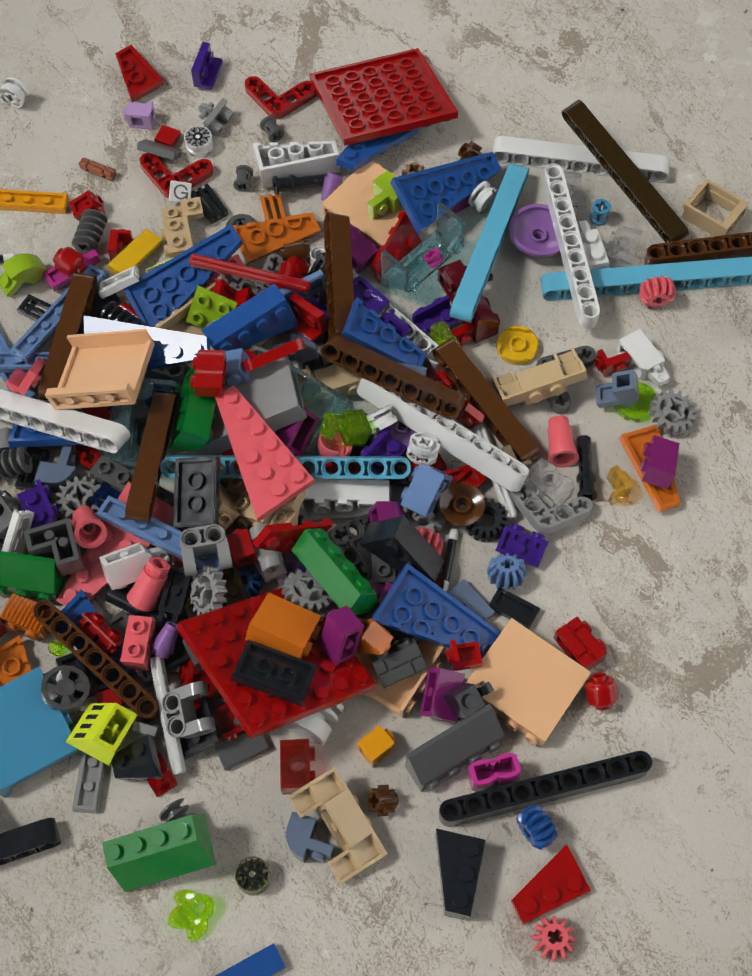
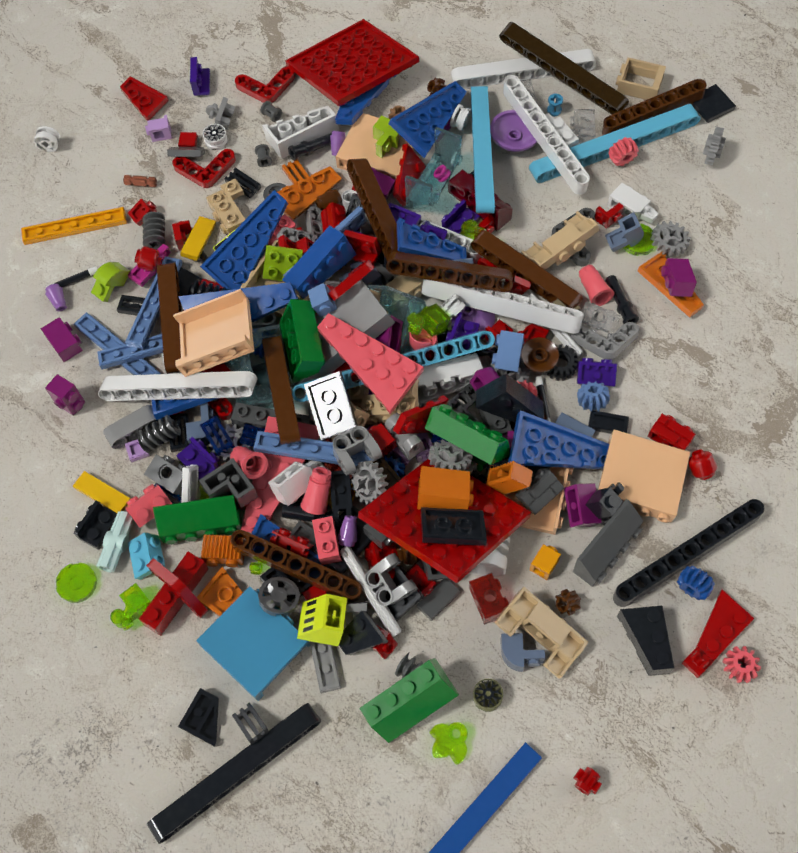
camera: 15 degrees left, 0 degrees up
(20, 381) = (148, 364): coral bracket -> none
(69, 500) = (224, 447): none -> clear blue tile
(119, 282) = (195, 263): white tile -> none
(179, 191) = (215, 179): white tile -> none
(209, 373) = (307, 308): red brick -> none
(249, 273) = (303, 224): red axle -> none
(341, 634) = (492, 481): magenta brick -> none
(423, 446) = (494, 320): white wheel -> none
(464, 655) = (590, 468): red bracket -> none
(499, 771) = (645, 552): dark pink brick -> none
(505, 918) = (697, 662): none -> red tile
(517, 345) = (530, 223): yellow tile -> none
(620, 483) = (652, 304): clear yellow bracket -> none

